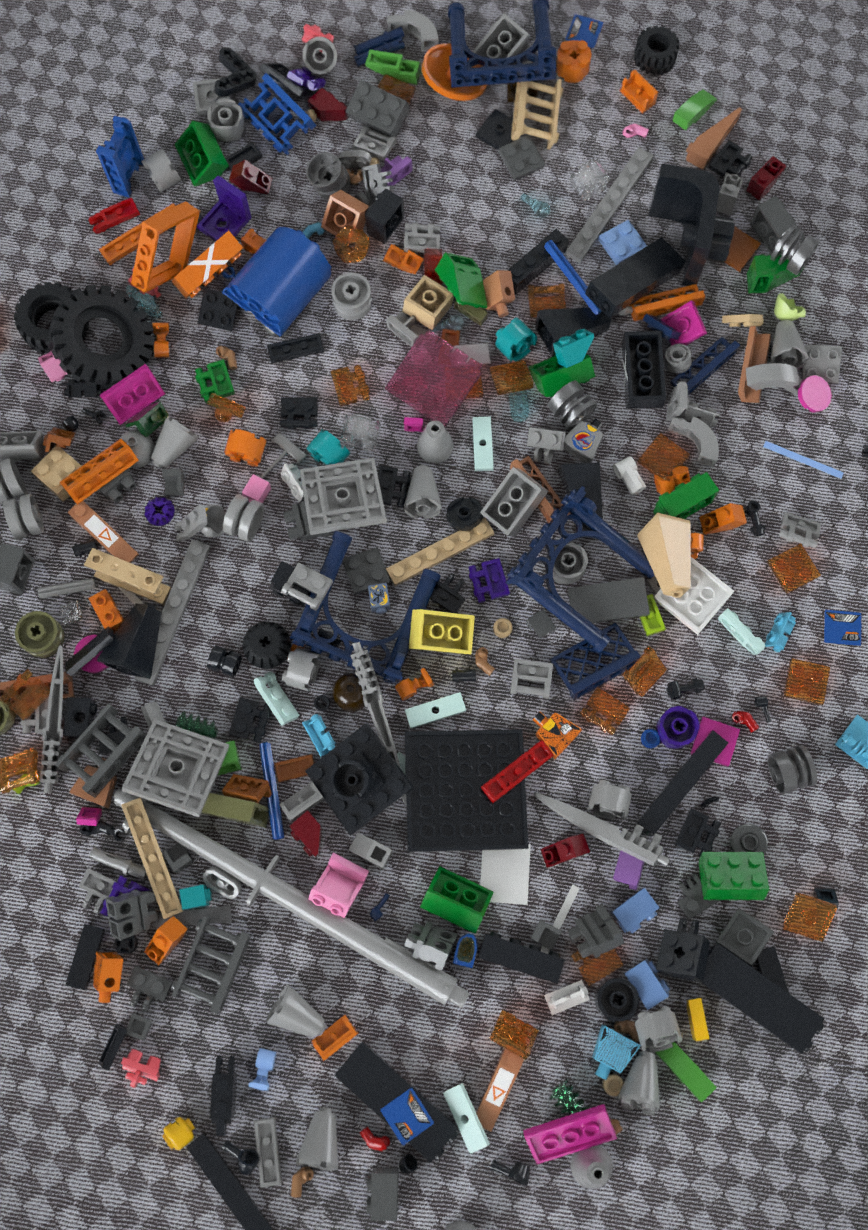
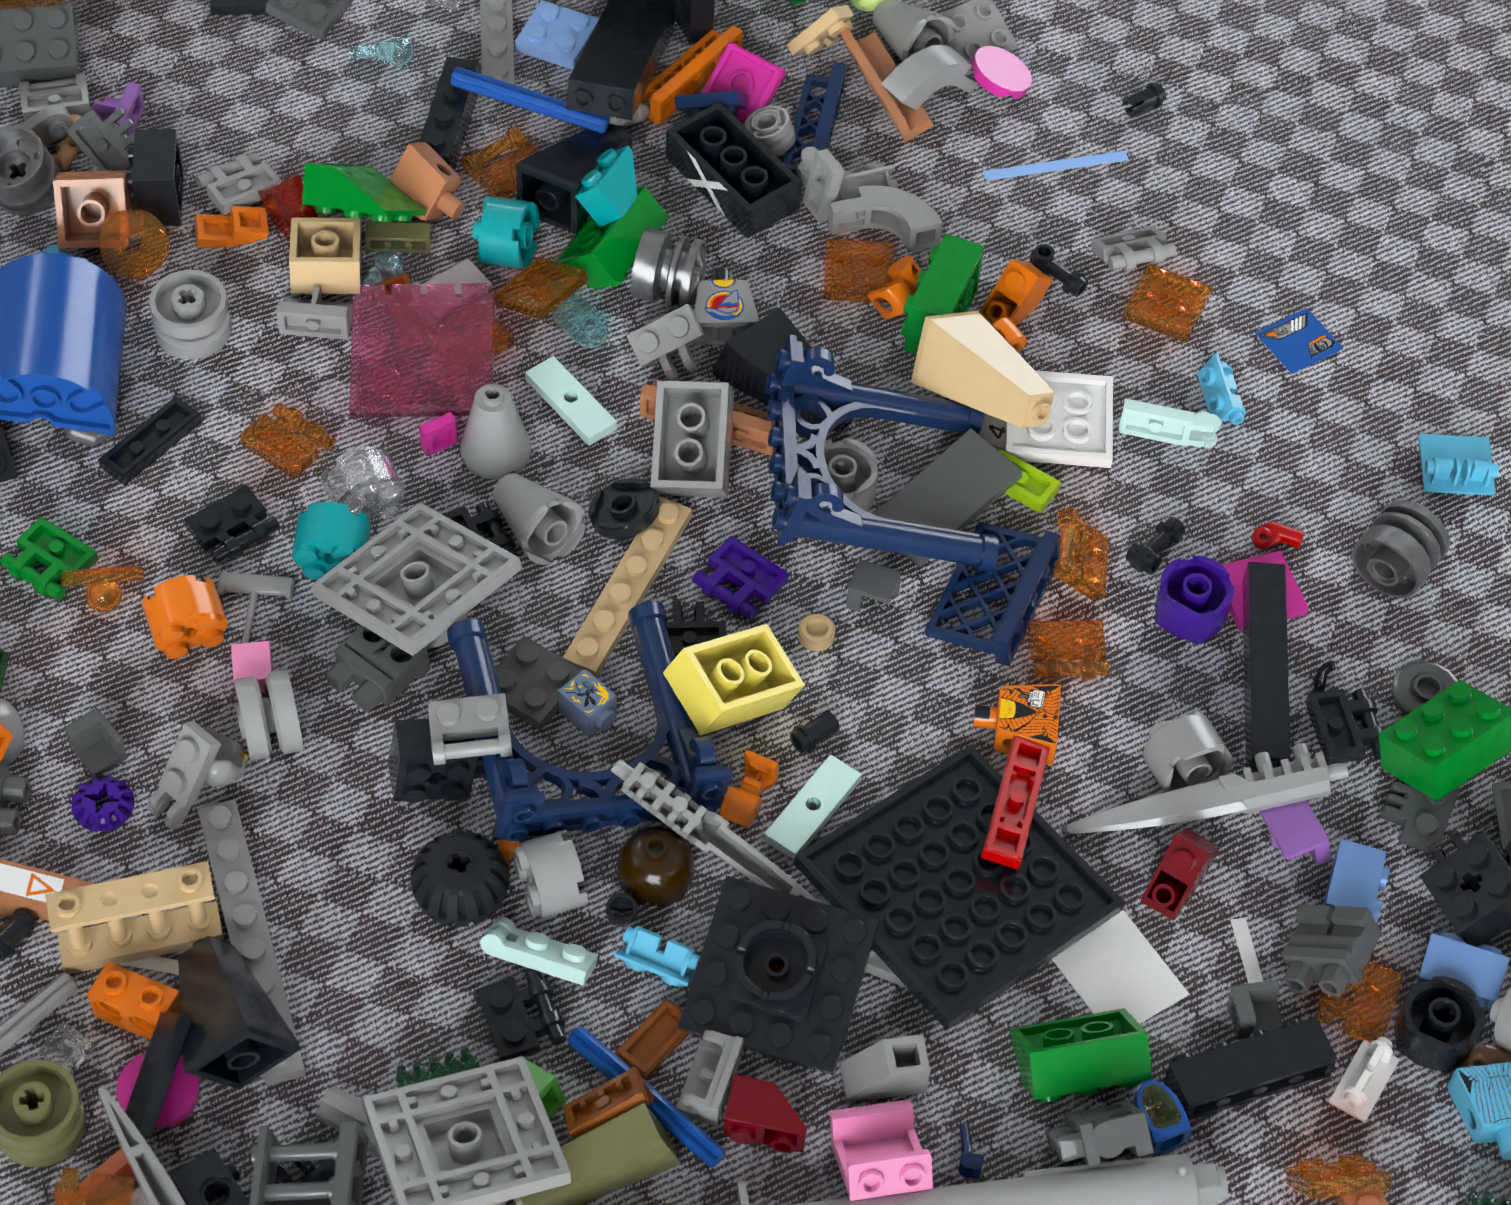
camera: 40 degrees left, 20 degrees down
(172, 443) = (48, 679): light grey cone -> none
(222, 660) = (406, 949): black wheel -> none
(228, 355) = (32, 509): medium nougat arm -> none
(291, 474) = (308, 626): white hinge -> none
(482, 662) = (823, 695): medium nougat arm -> none
(533, 672) = (916, 661): light grey plate -> none
(627, 471) = (822, 313): white piece -> none
(650, 738) = (1166, 643): blue plate -> none
(762, 702) = (1279, 497): black hand -> none
(806, 681) = (1315, 433): clear orange plate -> none

